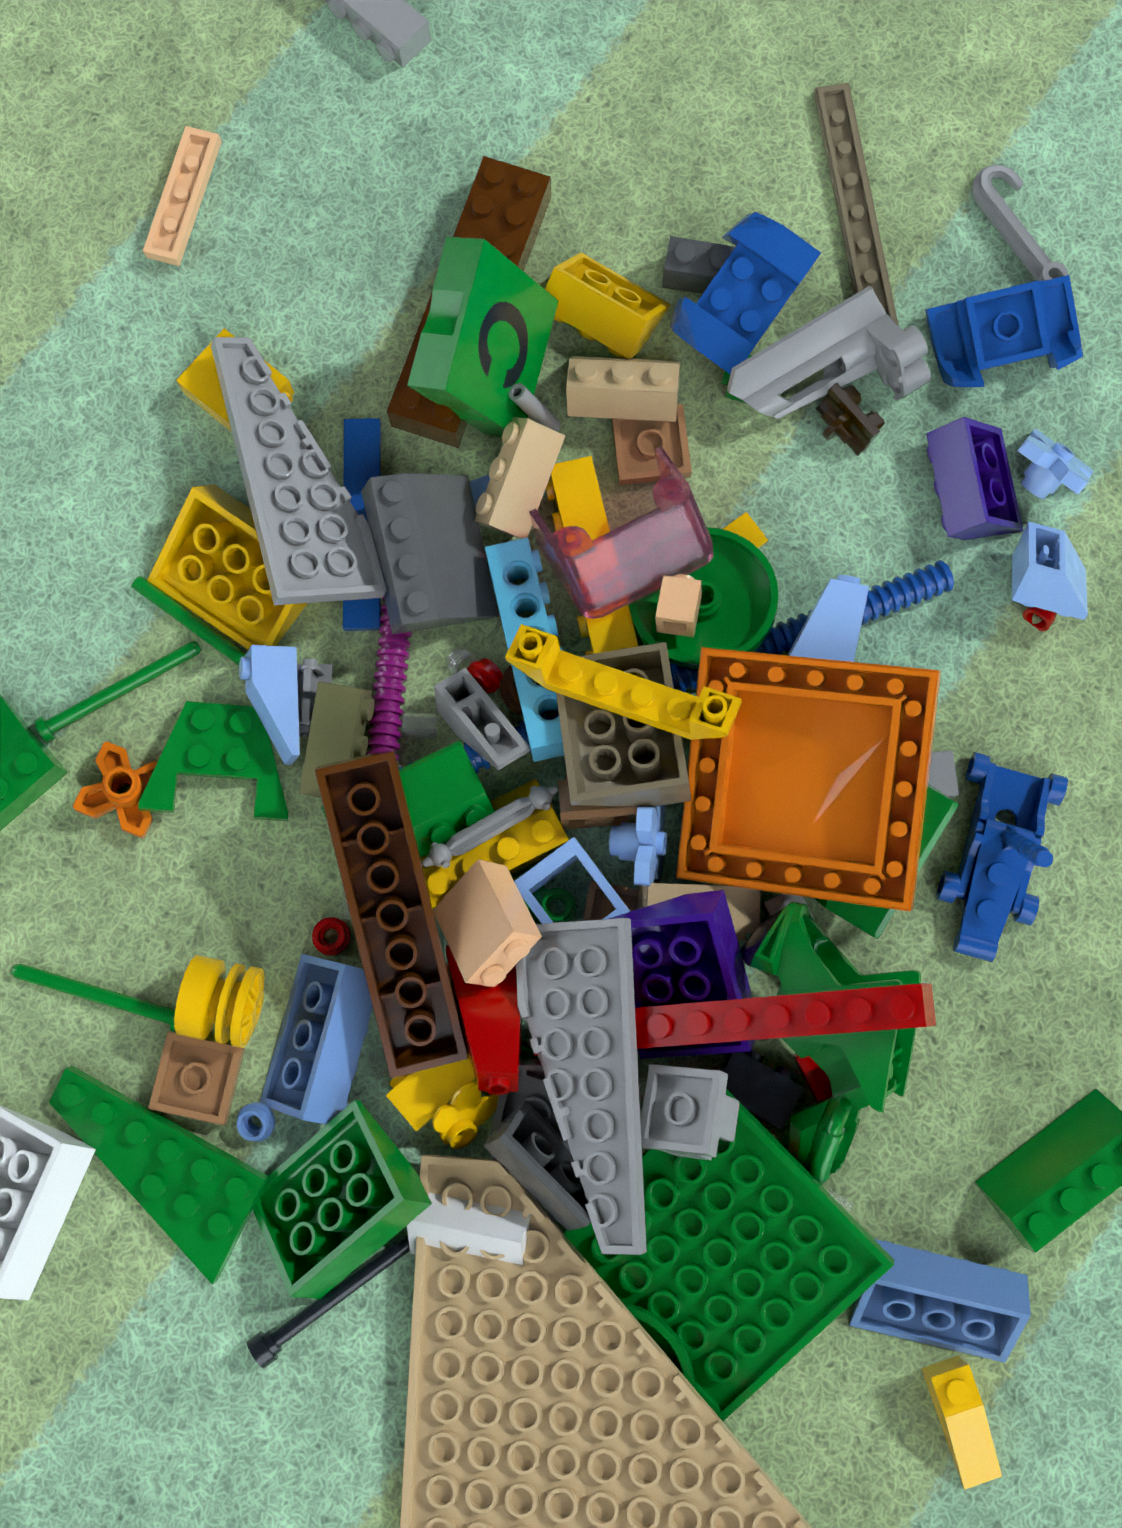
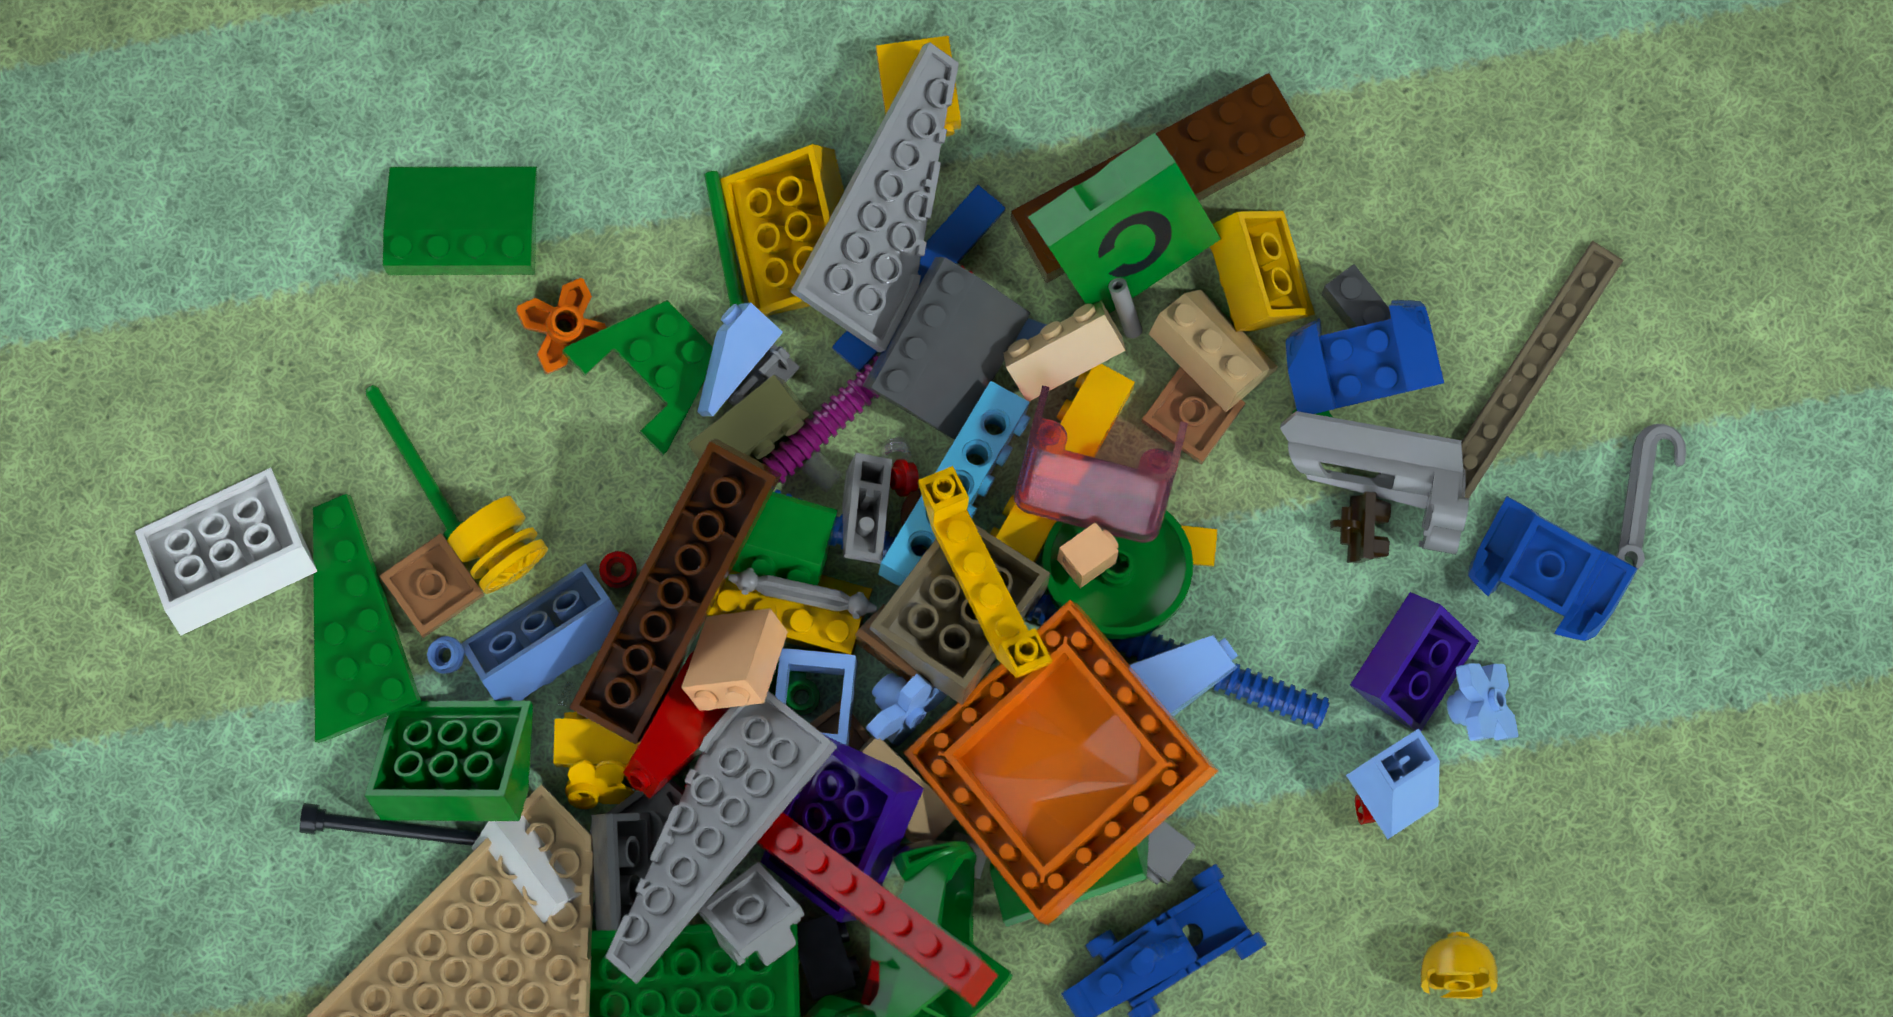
camera: 40 degrees right, 0 degrees up
(48, 727) = (624, 244): green bar -> none

